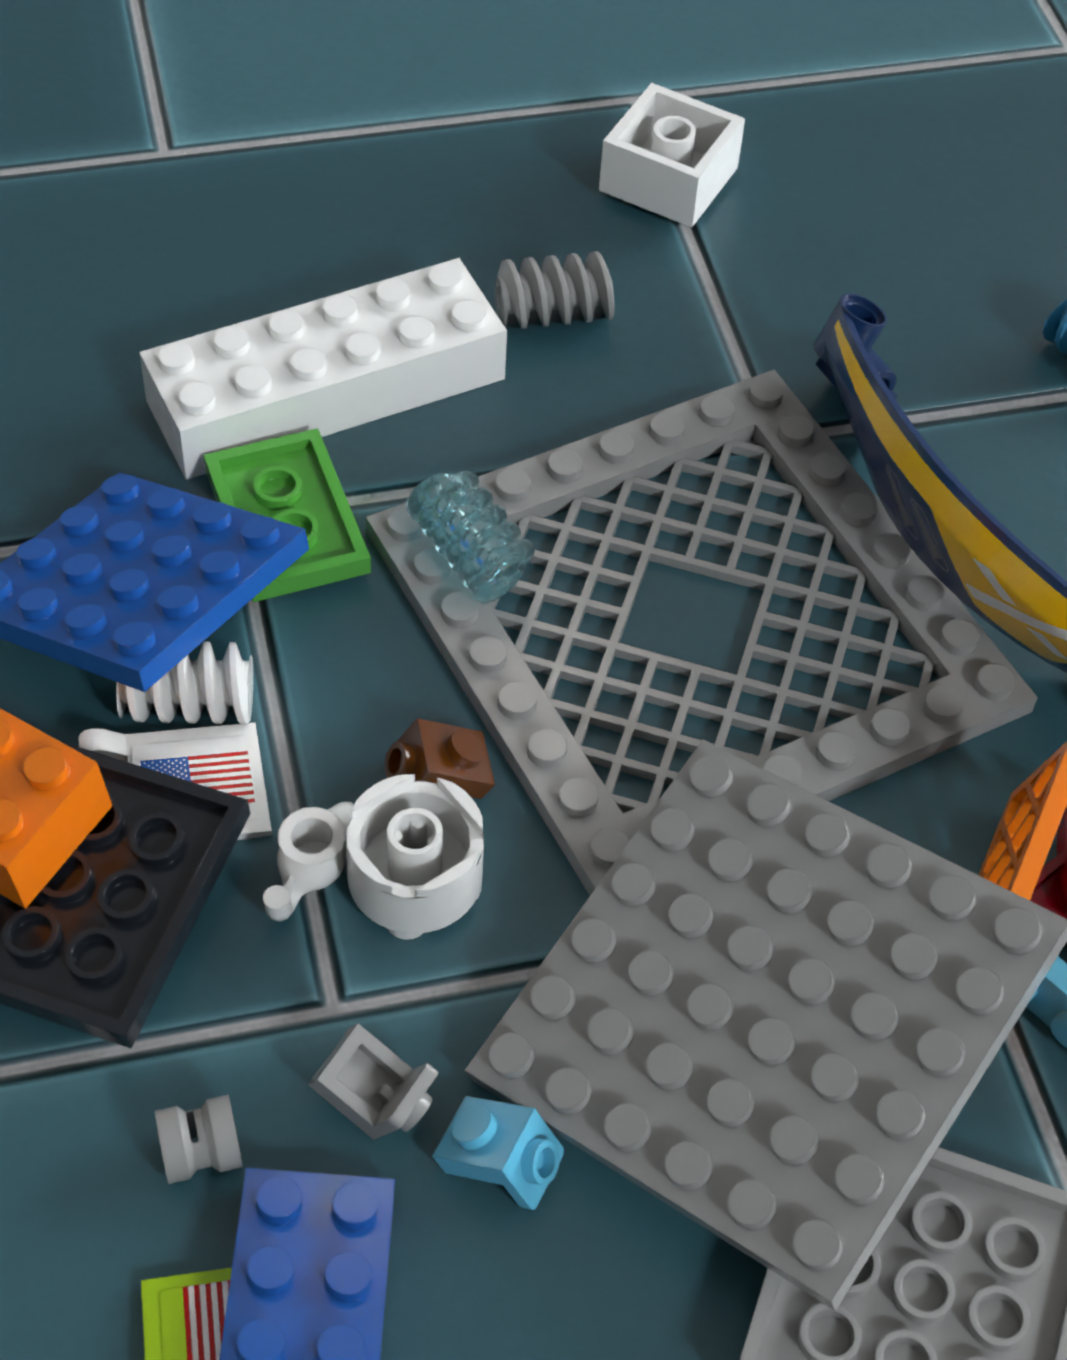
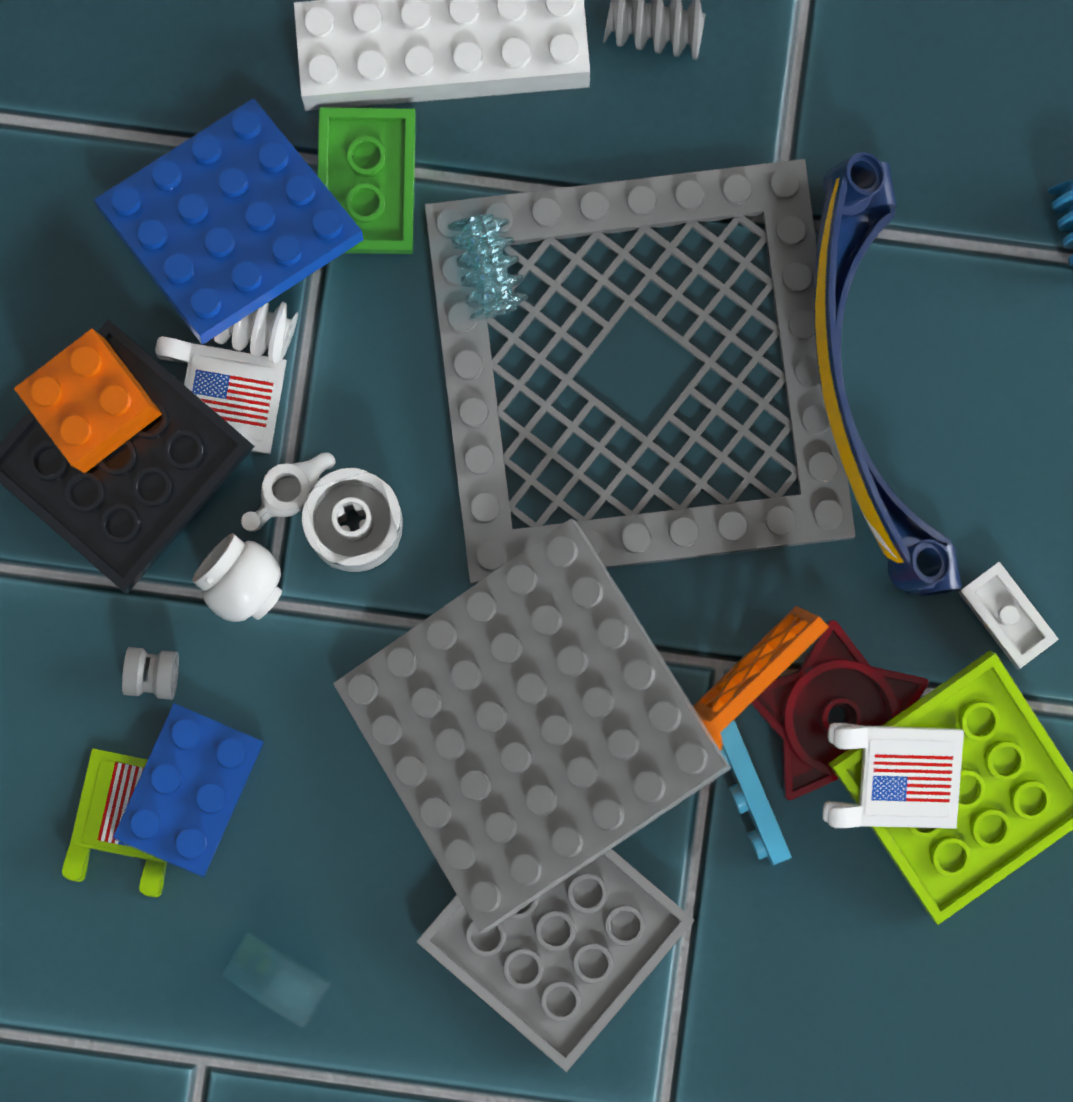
camera: 25 degrees right, 30 degrees up
(287, 971) = (239, 579): none -> white piece
(373, 1084) = (271, 675): light grey bracket -> none
(442, 752) = (400, 444): reddish brown bracket -> none
(501, 1147) = (335, 745): medium azure bracket -> none

